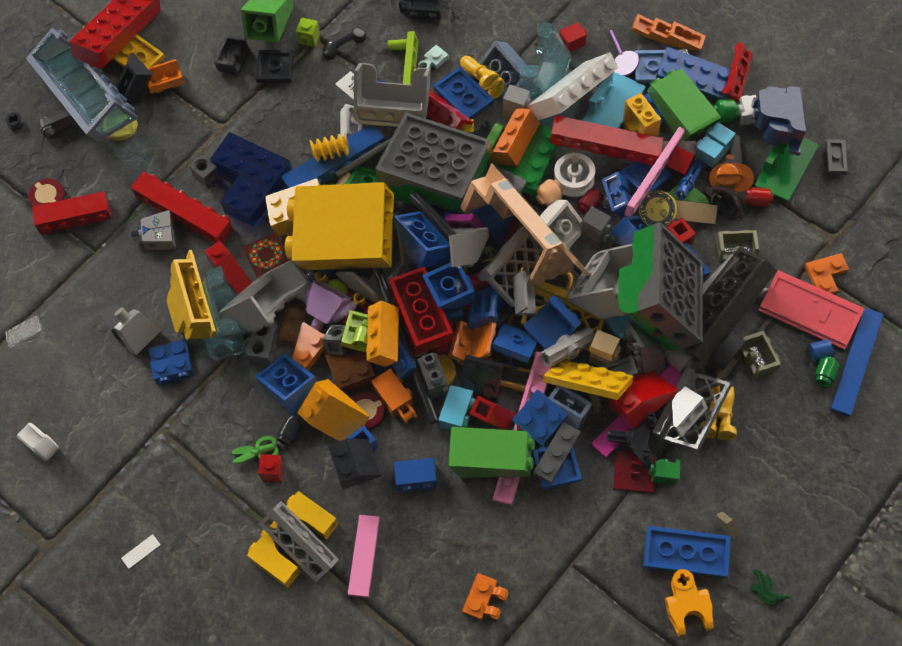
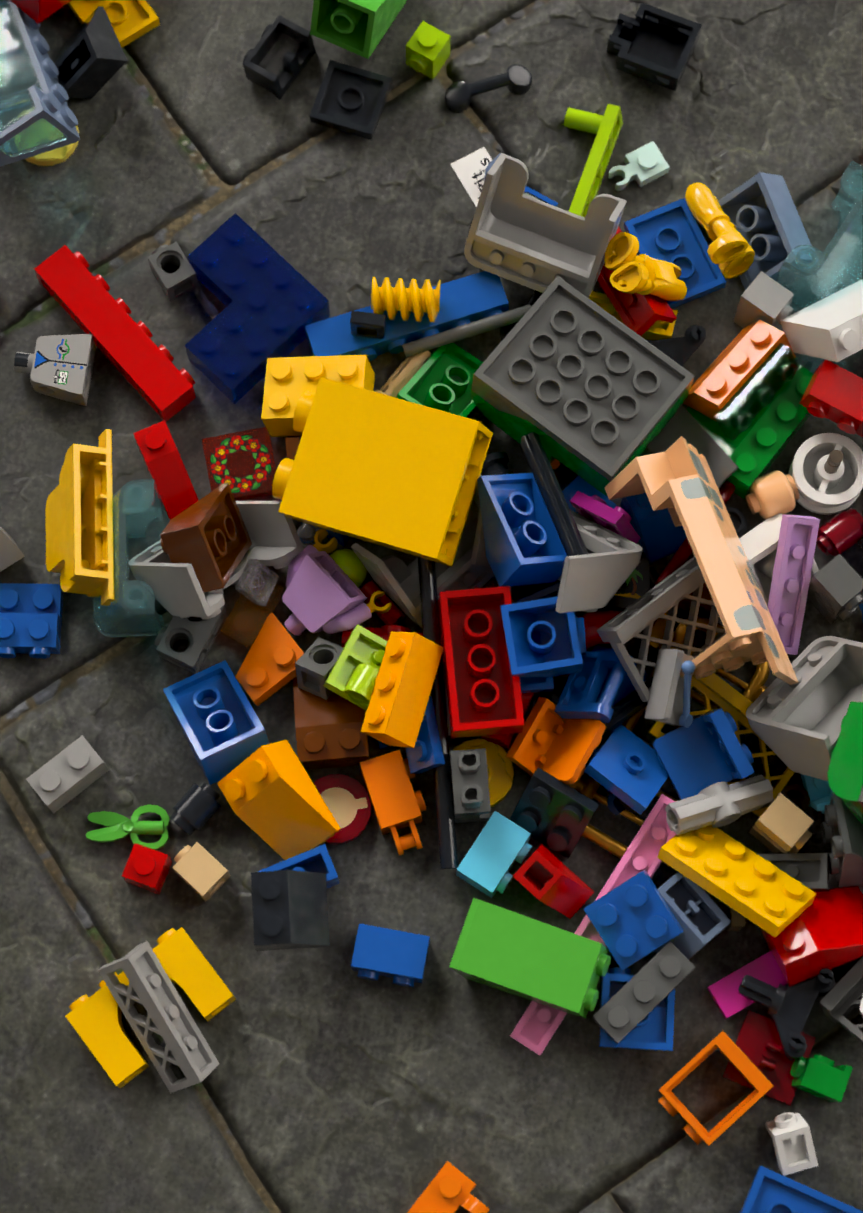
camera: 10 degrees right, 10 degrees up
(165, 76) = (149, 65): orange bracket -> none
(214, 432) = (67, 774): none -> light grey brick
(260, 285) = (209, 538): none -> reddish brown slope
(290, 306) = (257, 582): none -> clear tile
(300, 461) = (200, 870): none -> tan brick
(313, 165) = (368, 324): none -> black tile
(347, 122) = (450, 257): white slope -> none
(363, 556) = (263, 1071): bright pink tile -> none
(448, 101) = (640, 272): none -> yellow piece
(495, 134) = (707, 355): bright green beam -> none
(525, 142) = (757, 392): none -> clear green tile
(537, 308) = (686, 718): none -> medium blue hinge
(571, 225) = (792, 577): none -> lavender plate
(619, 475) = (743, 1066): none -> orange window
(661, 510) = (792, 1143): none -> white bracket

